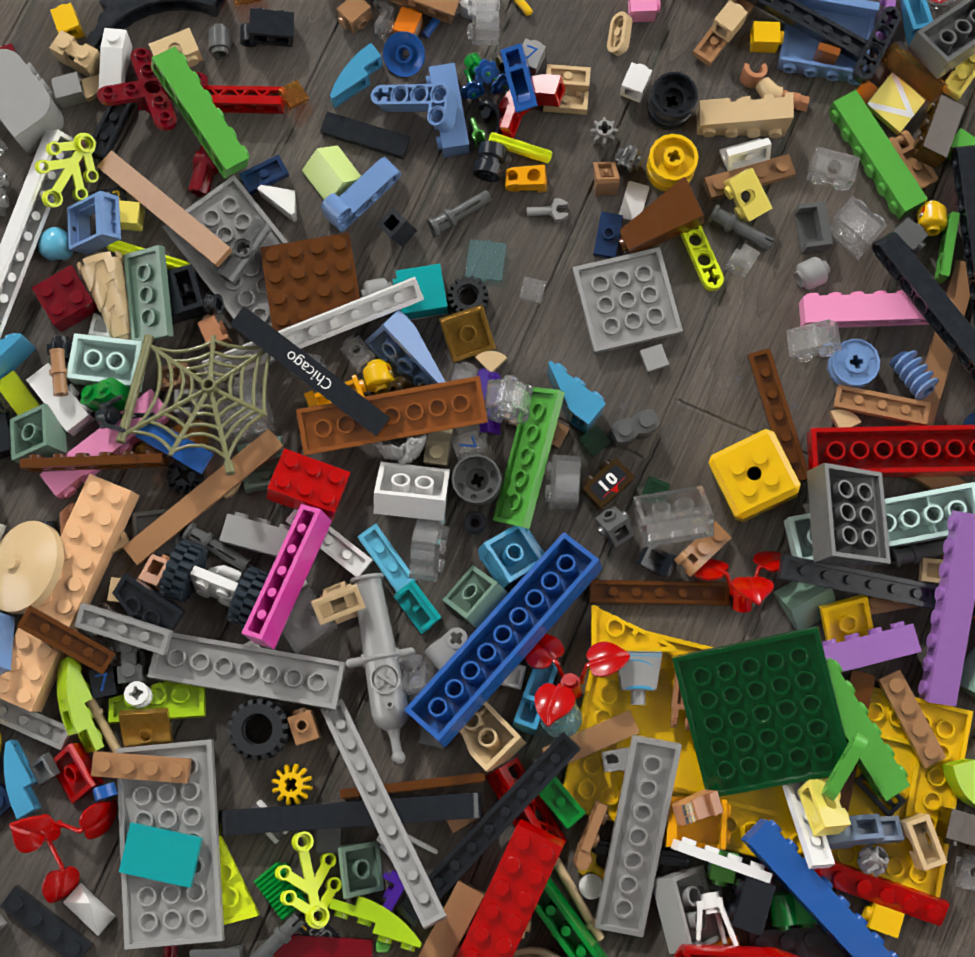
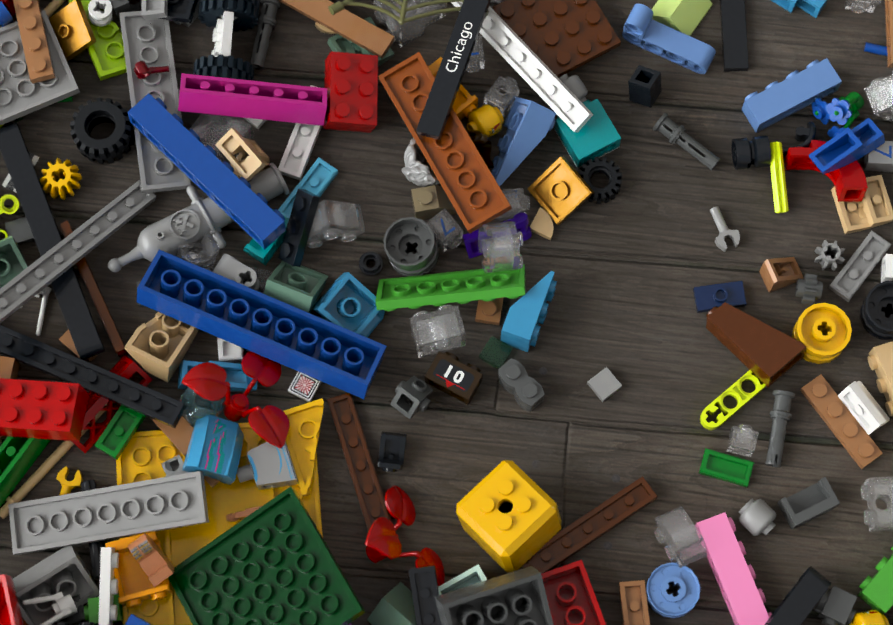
camera: 70 degrees right, 5 degrees down
(216, 672) = (142, 70): none -> dark red hand
(226, 572) = (242, 46): white arm -> none
(253, 535) = (286, 57): light grey brick -> none
(304, 726) = (118, 170): medium nougat brick -> none
(341, 641) = (207, 171): none -> blue brick
(394, 54) = (828, 26): blue dish -> none
(408, 20) = (866, 25): orange brick -> none
(411, 491) = (377, 187): white brick -> none
(413, 102) = (789, 77): medium blue beam -> none
(424, 574) = (299, 227): none -> black plate
(477, 135) = (776, 133): bright green hand -> none
(485, 260) = (646, 185): clear light blue piece -> none
(526, 178) = (748, 196): light orange leg -> none
(532, 290) = (631, 241): clear tile -> none
(570, 620) = (304, 386): none -> tile
(589, 837) = (93, 469): medium nougat hinge -> none
(590, 886) = (47, 488): white tile -> none
(609, 717) = (215, 448): none -> dark azure slope
(618, 110) = (859, 266): none -> light grey tile
(627, 300) = (655, 337): light grey plate -> none
(634, 200) = (770, 311): white sticker -> none
(654, 485) = (465, 429): clear green tile -> none
(673, 516) = (440, 449): clear brick -> none
(702, 550) = (418, 492): medium nougat plate -> none
(758, 201) = (828, 414): light yellow brick -> none
(759, 284) = (726, 467): none -> green tile
(844, 418) = (610, 600): tan tile -> none
(856, 227) = (822, 543): clear brick -> none

